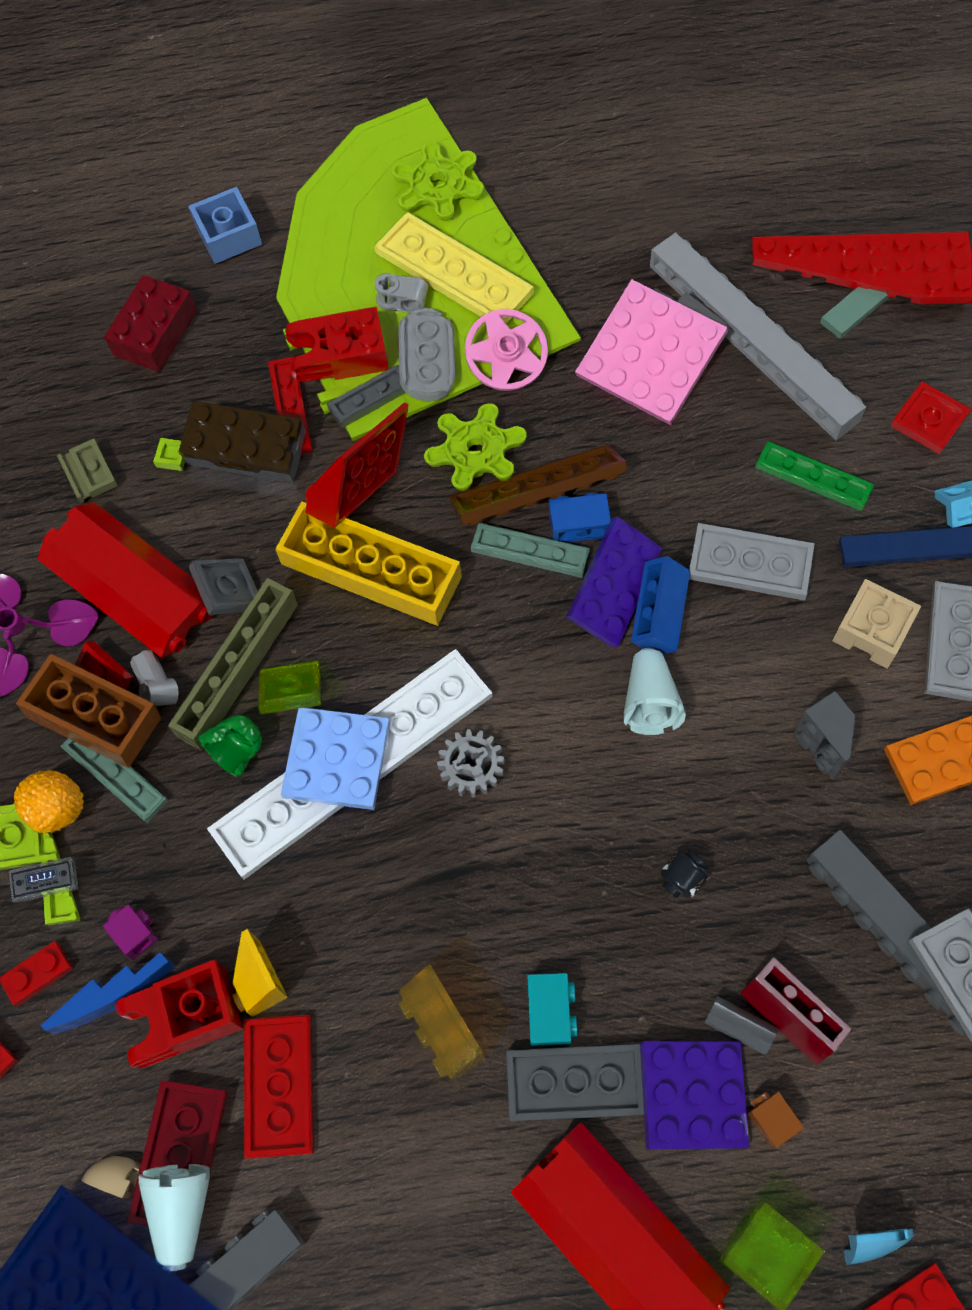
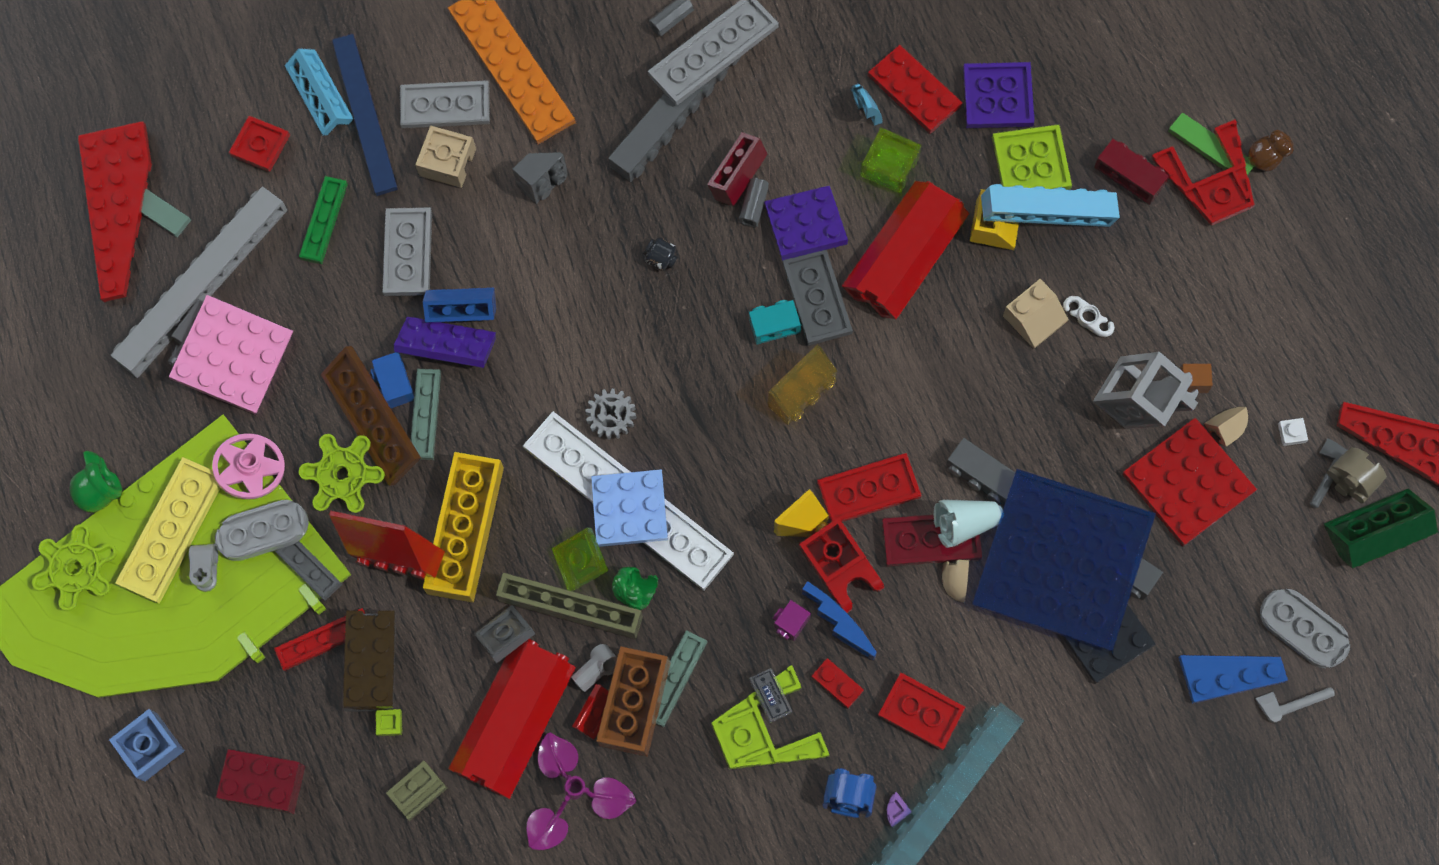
camera: 105 degrees left, 5 degrees up
(48, 801) = (711, 711): light orange hair -> none
(340, 343) = (268, 606): red brick -> none
(513, 207) = (89, 488): none -> green piece
(652, 695) = (530, 298): light aqua cone -> none
(774, 1119) = (808, 172): dark orange brick -> none

